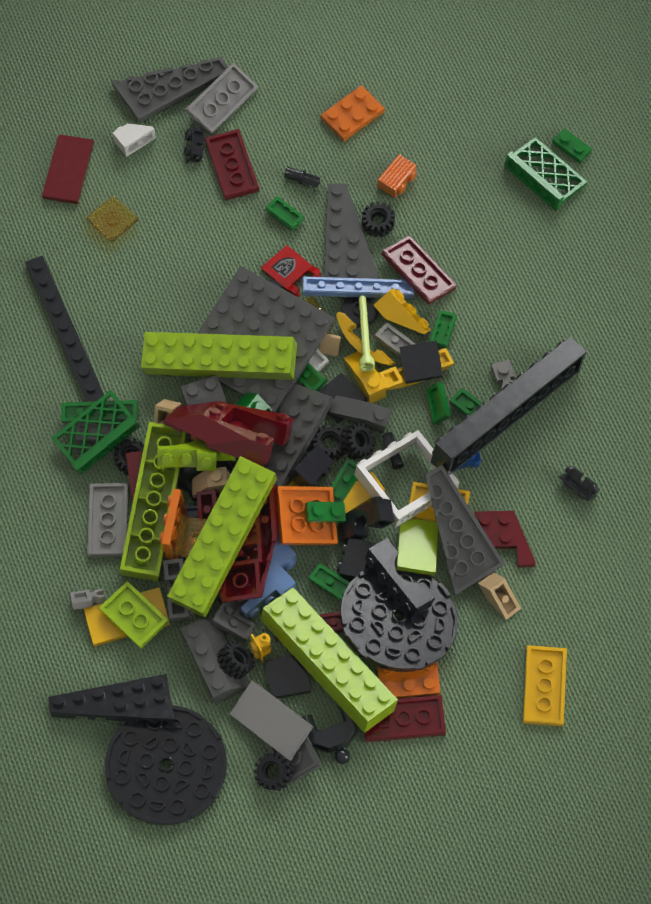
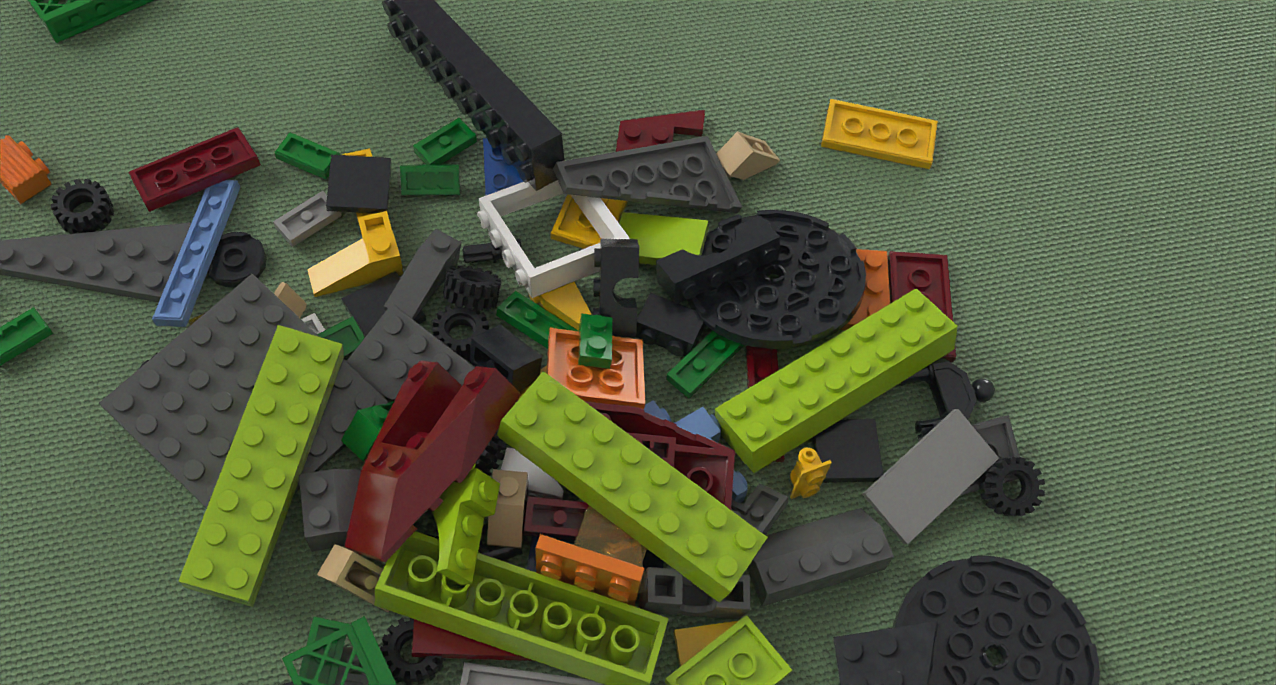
camera: 90 degrees left, 5 degrees down
(235, 659) = (825, 515): black tyre -> none
(288, 268) = (121, 347): red flag -> none
(347, 327) = (330, 239): yellow slope -> none
(367, 361) = (344, 245): yellowish green piece -> none
(397, 310) = (260, 202): yellow slope -> none
(503, 372) = (401, 98): light grey plate -> none
(572, 478) = (604, 37): black hinge -> none

